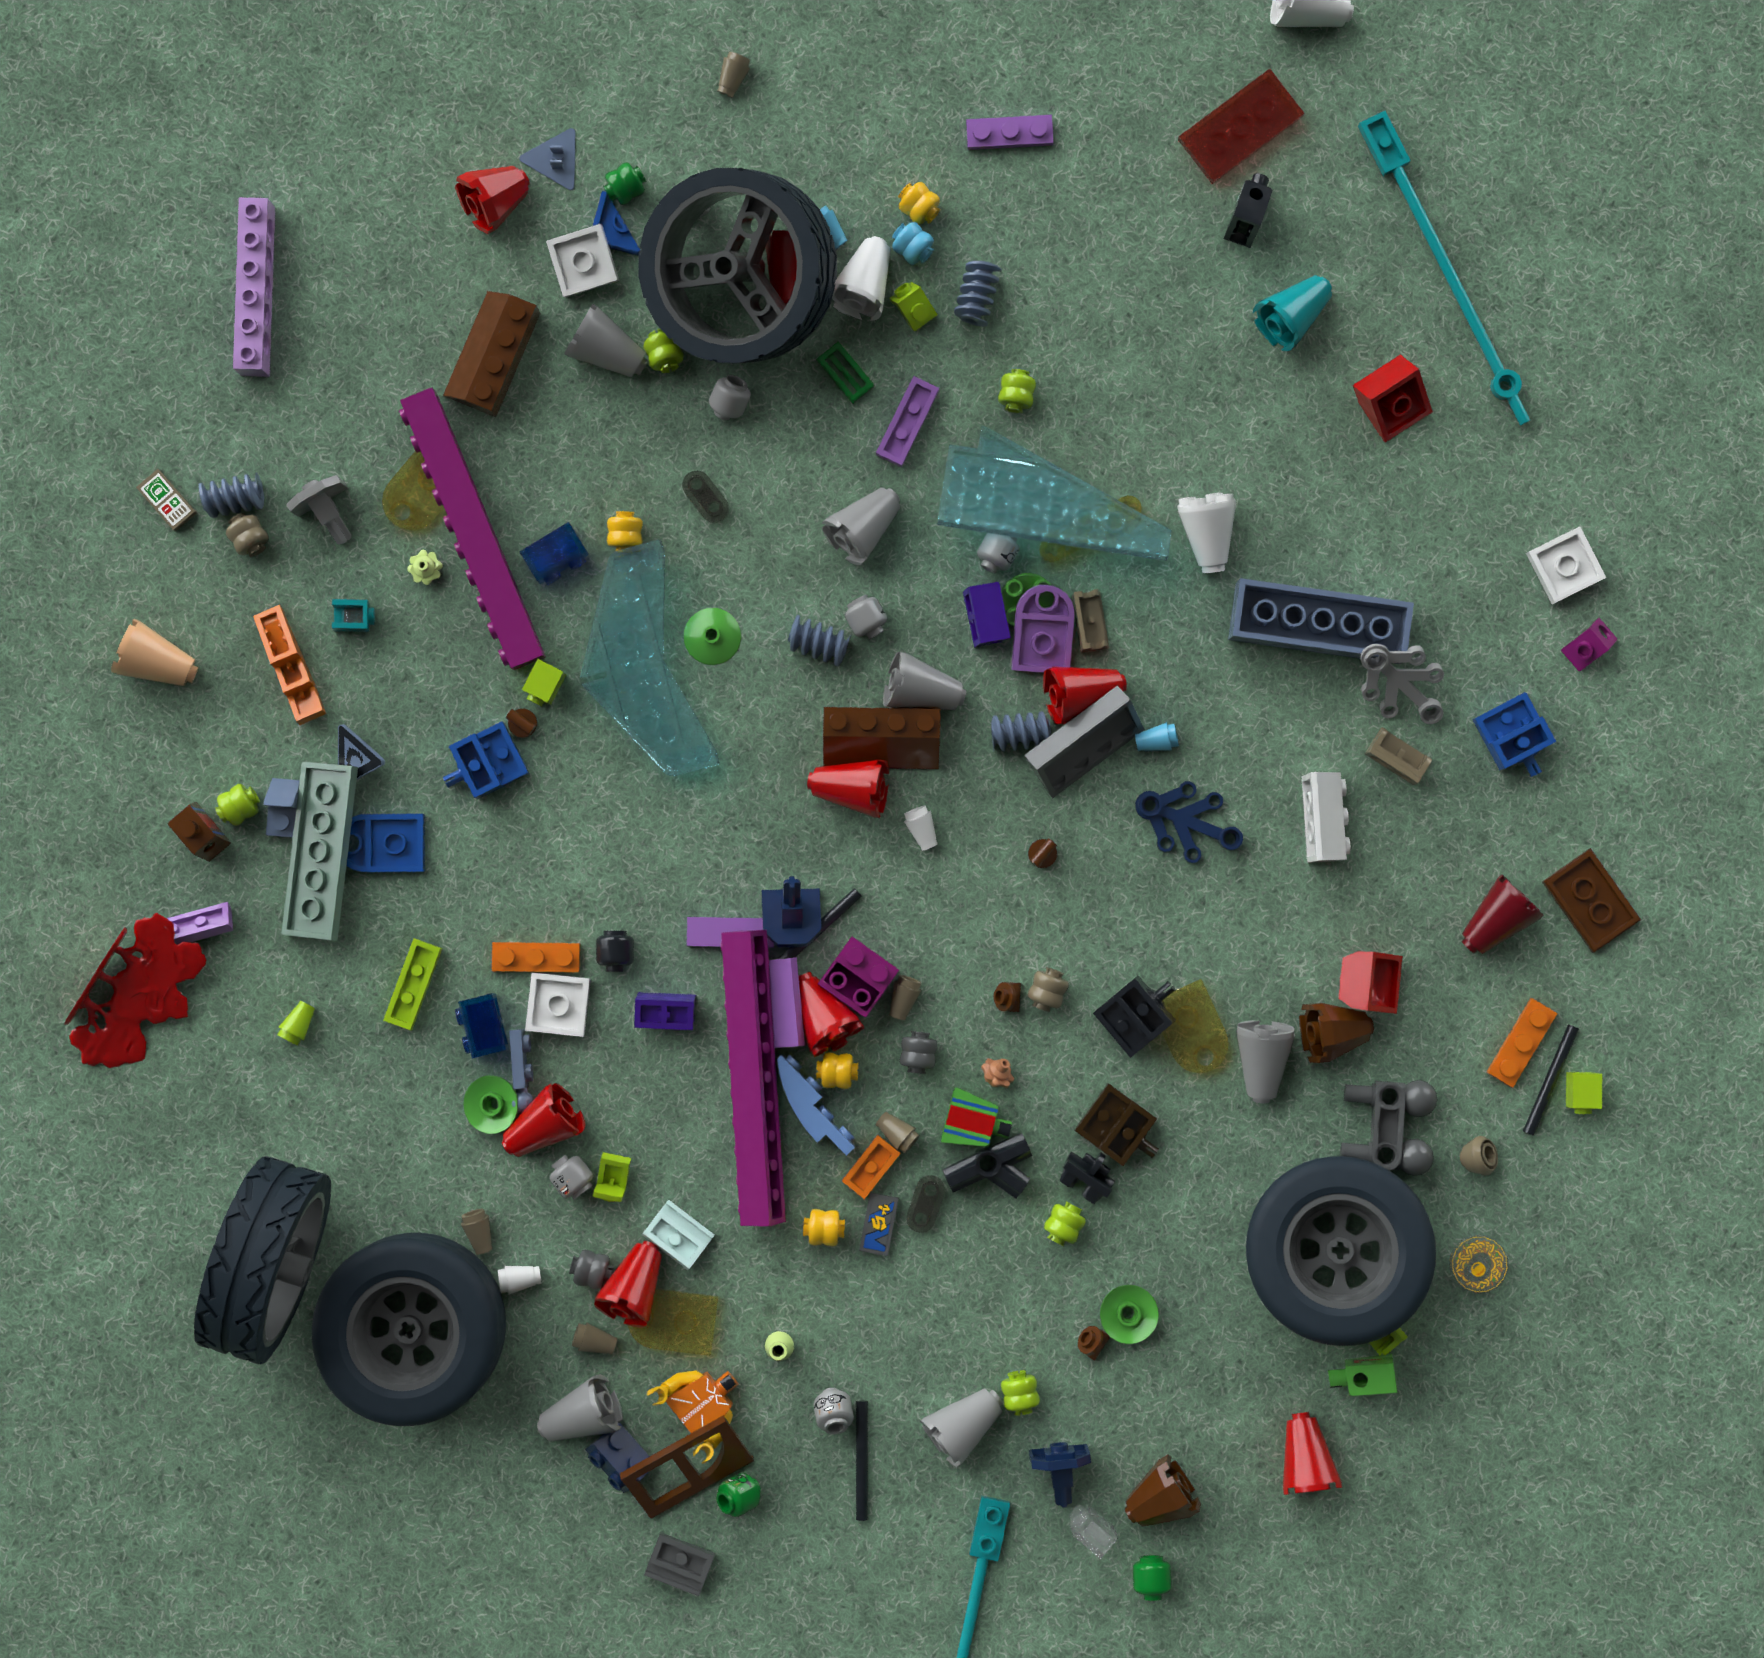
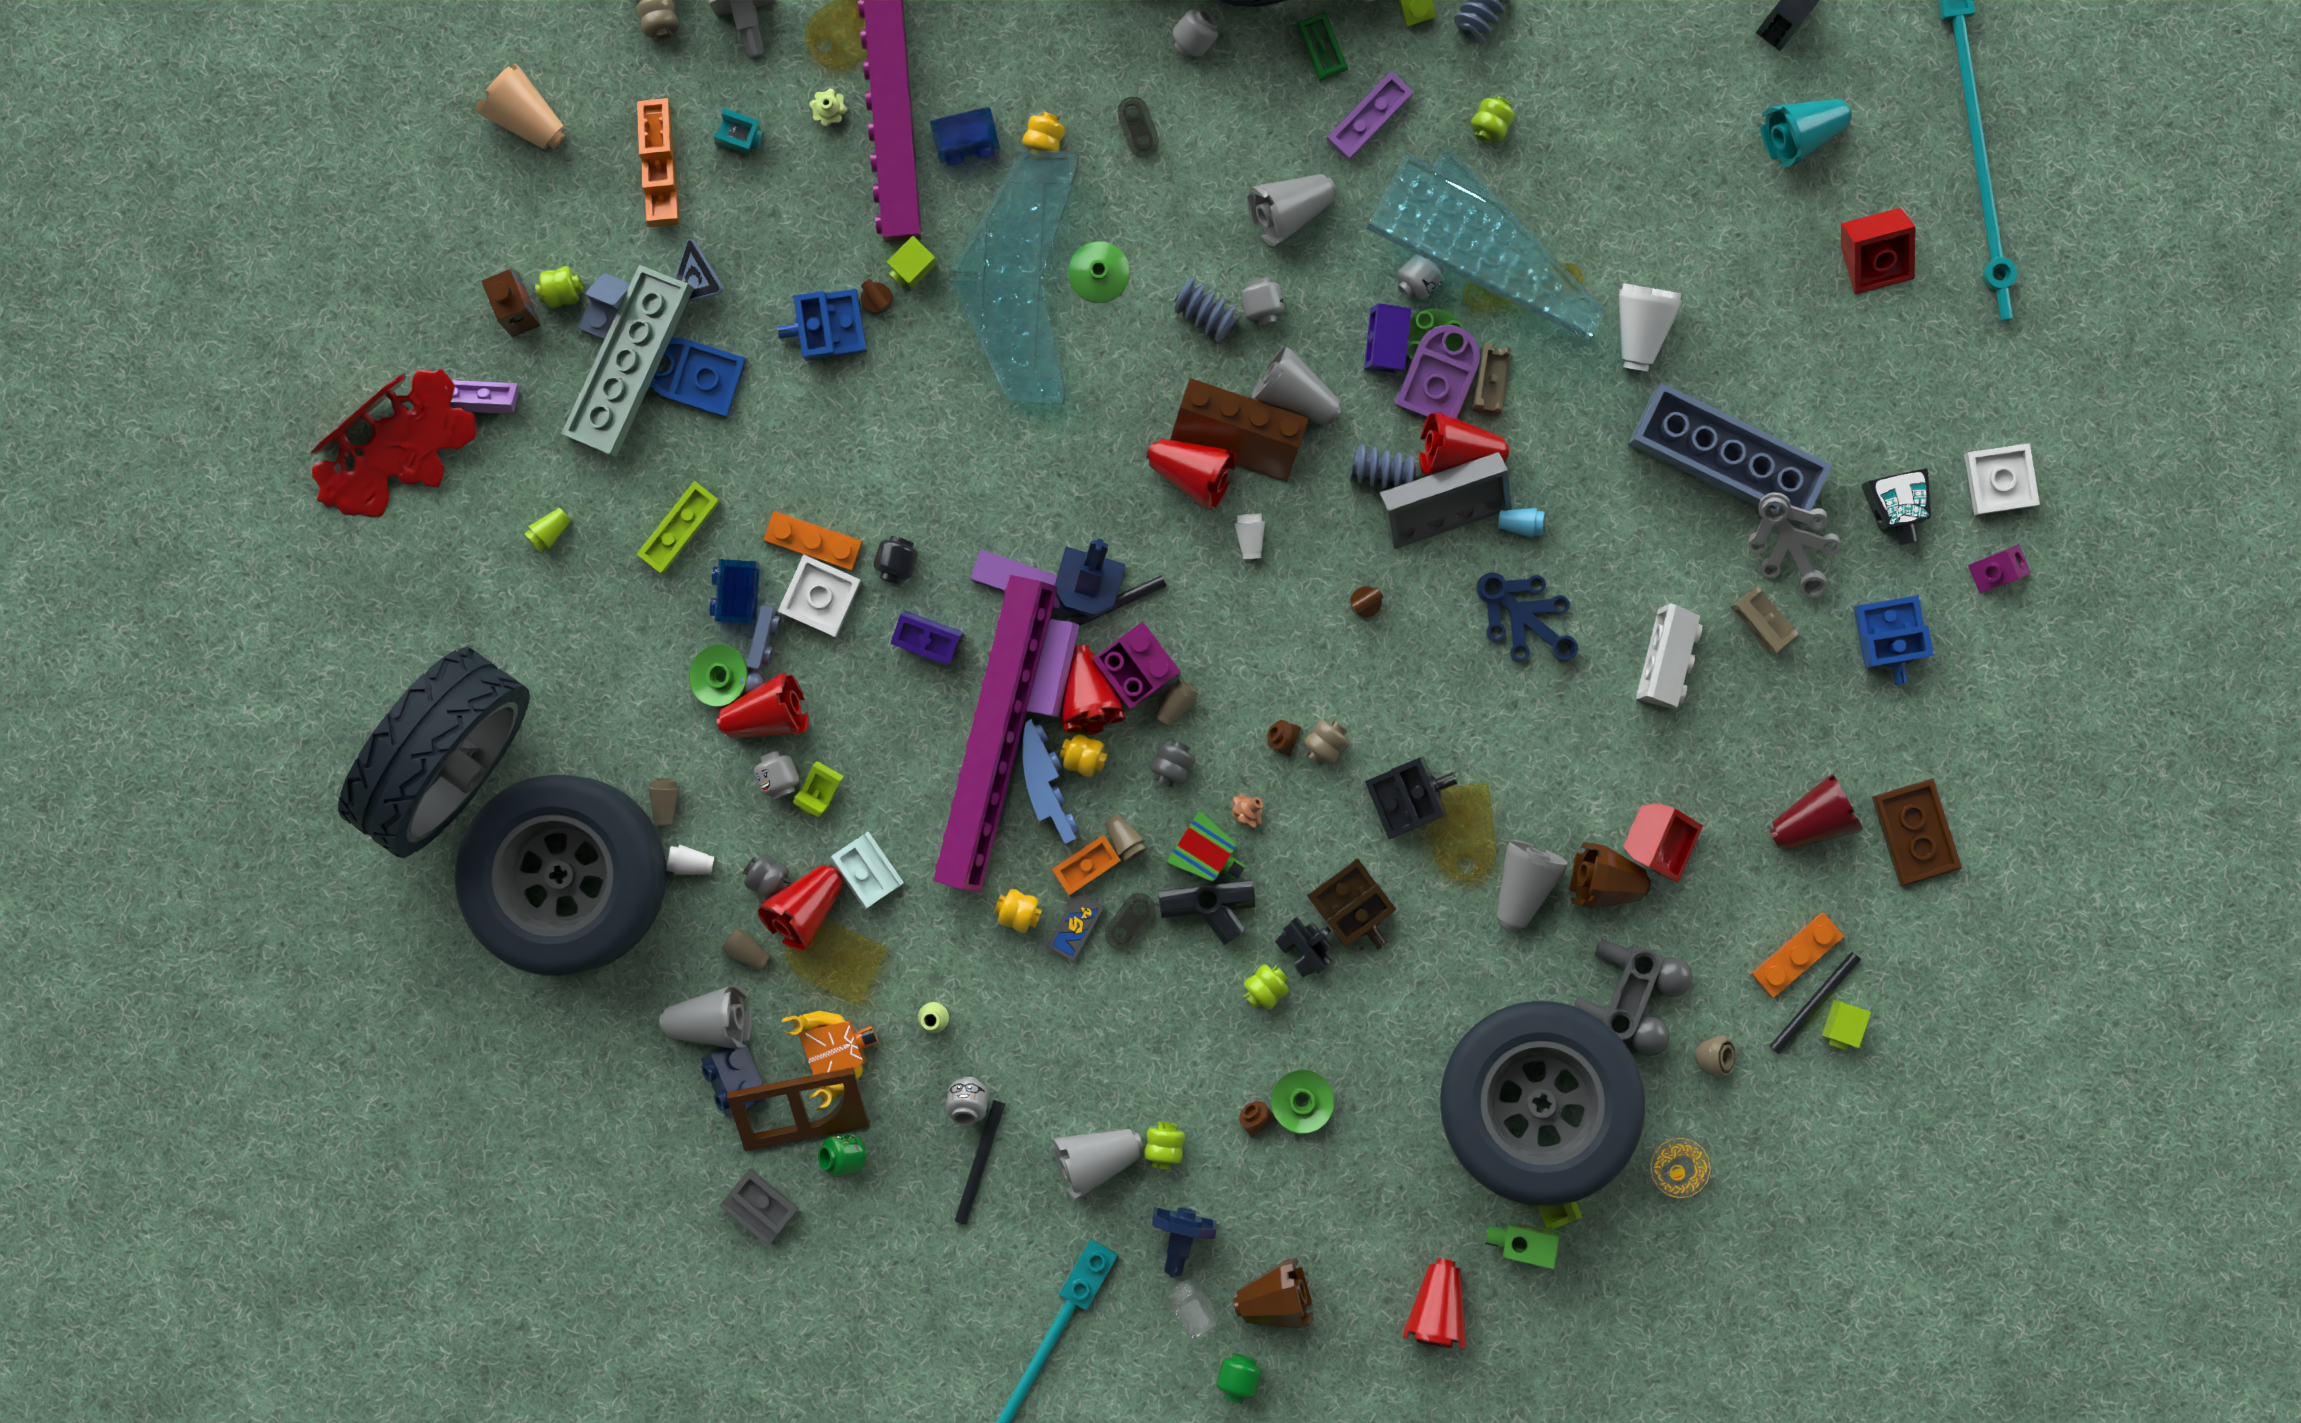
camera: 20 degrees right, 0 degrees up
(1484, 615) = (1900, 502): none -> torso

